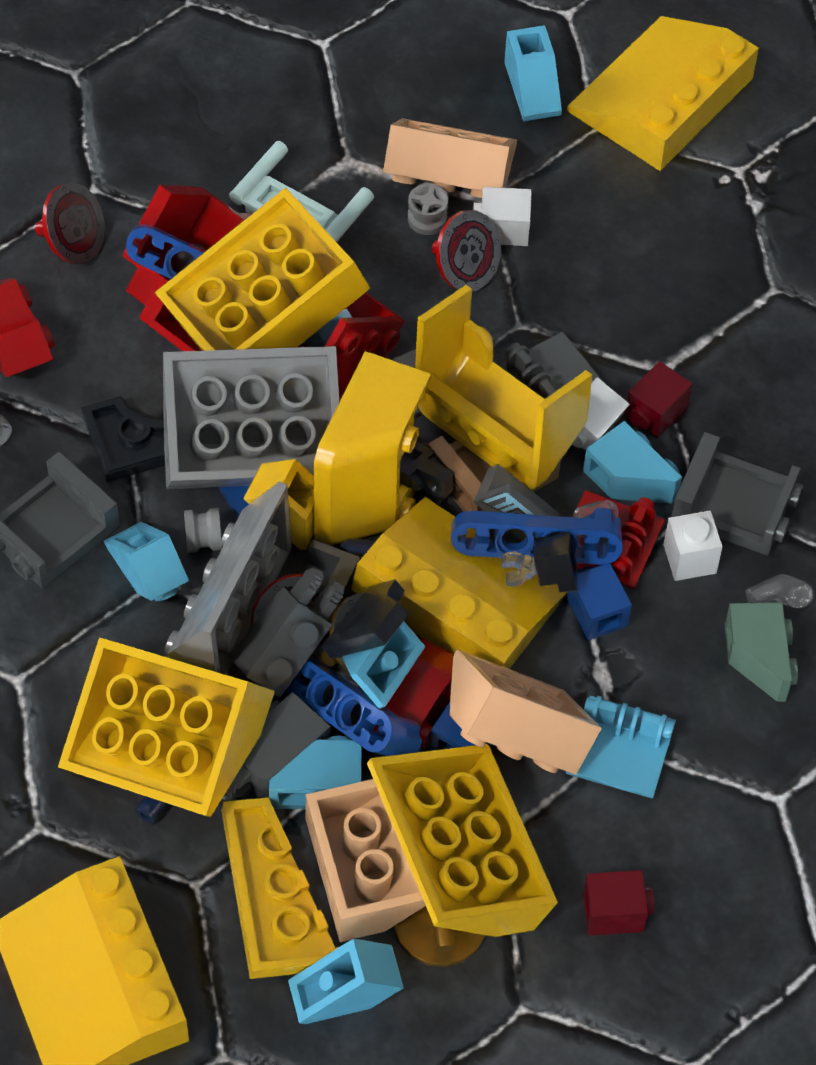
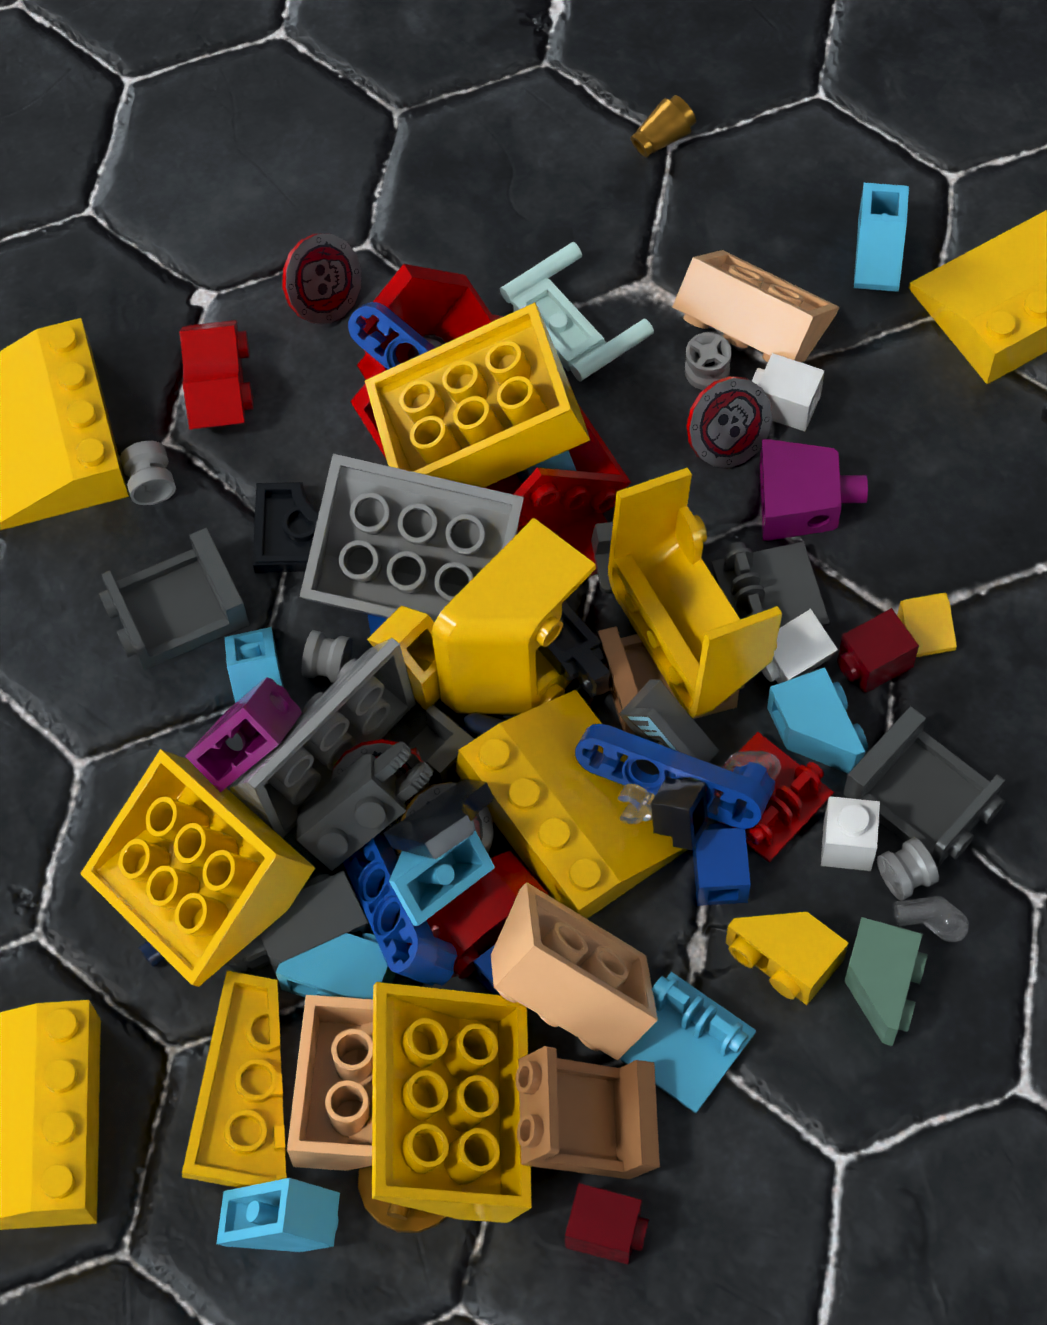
camera: 25 degrees right, 5 degrees up
(178, 592) = (262, 723): none -> magenta torso
(315, 28) = (665, 125): none -> pearl gold cone
(547, 289) = (803, 489): none -> magenta torso
(573, 820) = (587, 1116): none -> medium nougat panel
(678, 649) = (790, 949): none -> yellow slope
(692, 364) = (929, 623): none -> yellow slope
(748, 560) = (907, 868): none -> light grey wheel

